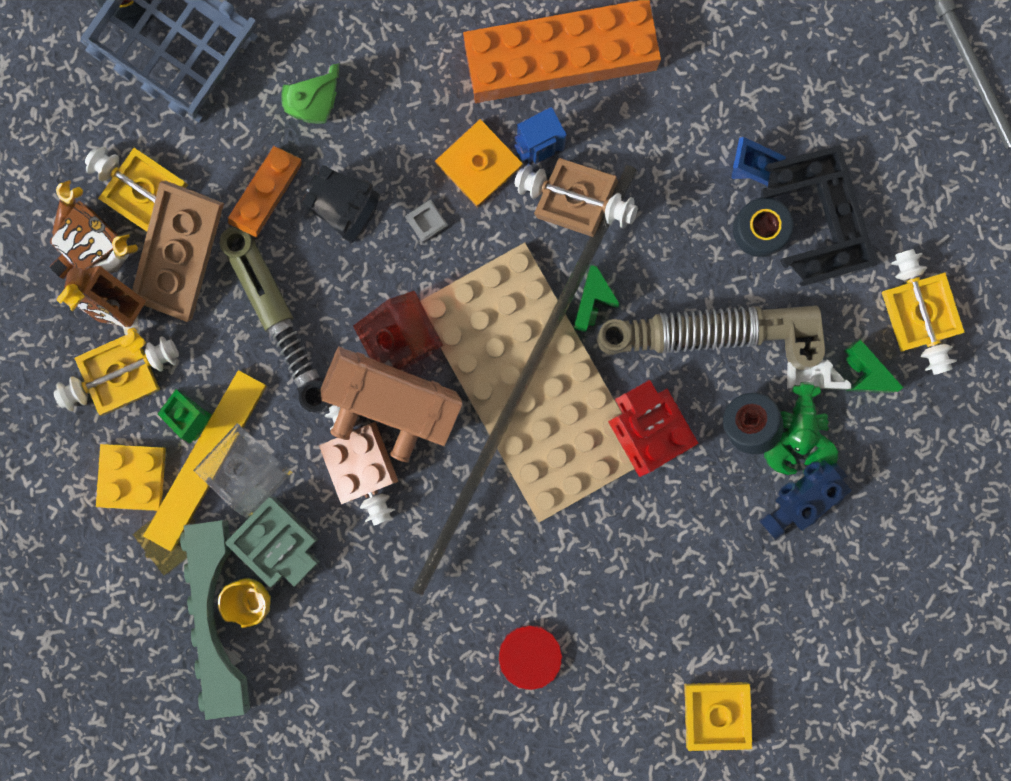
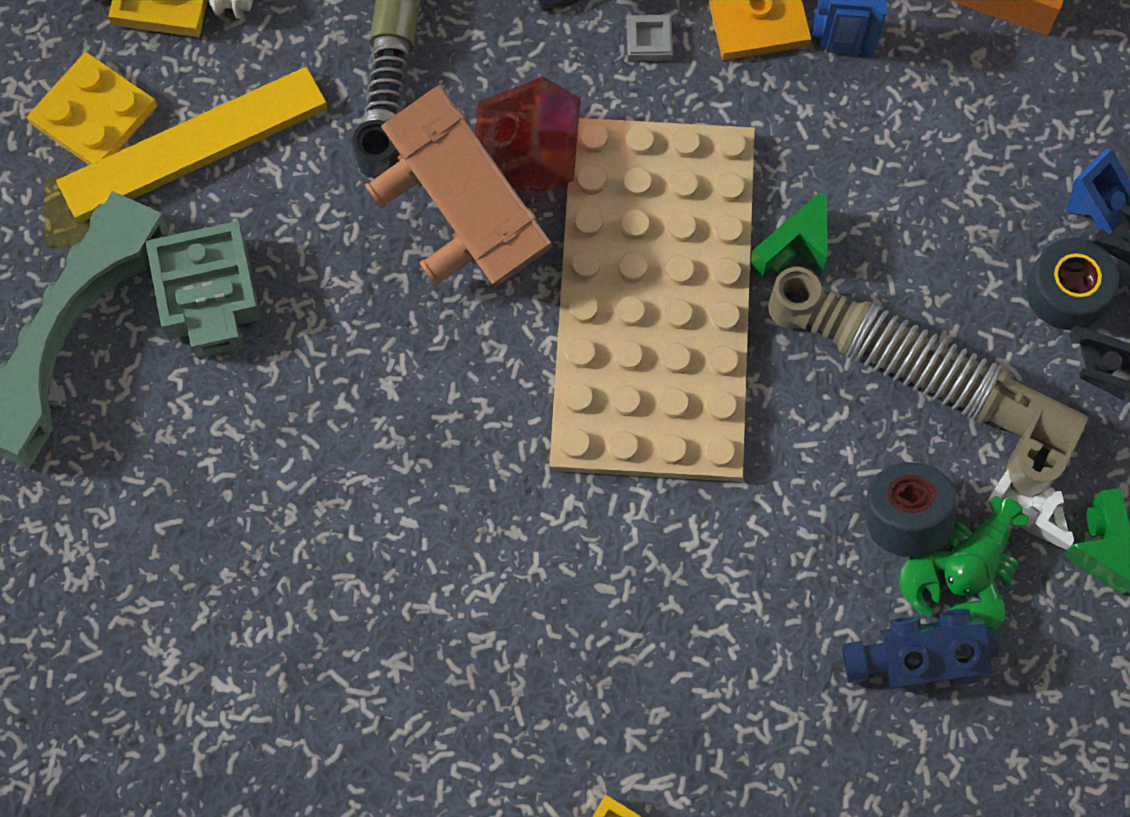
camera: 30 degrees right, 15 degrees down
(184, 416) = (206, 80): green slope -> none
(234, 602) = (108, 321): yellow hair -> none
(242, 471) = (229, 176): clear slope -> none
(360, 468) = (372, 261): plate -> none
(517, 393) = (638, 283): clear smoke piece -> none
(530, 657) = (424, 630): red tile -> none
(576, 197) = (853, 106): medium nougat plate -> none
(651, 428) = (771, 433): red piece -> none

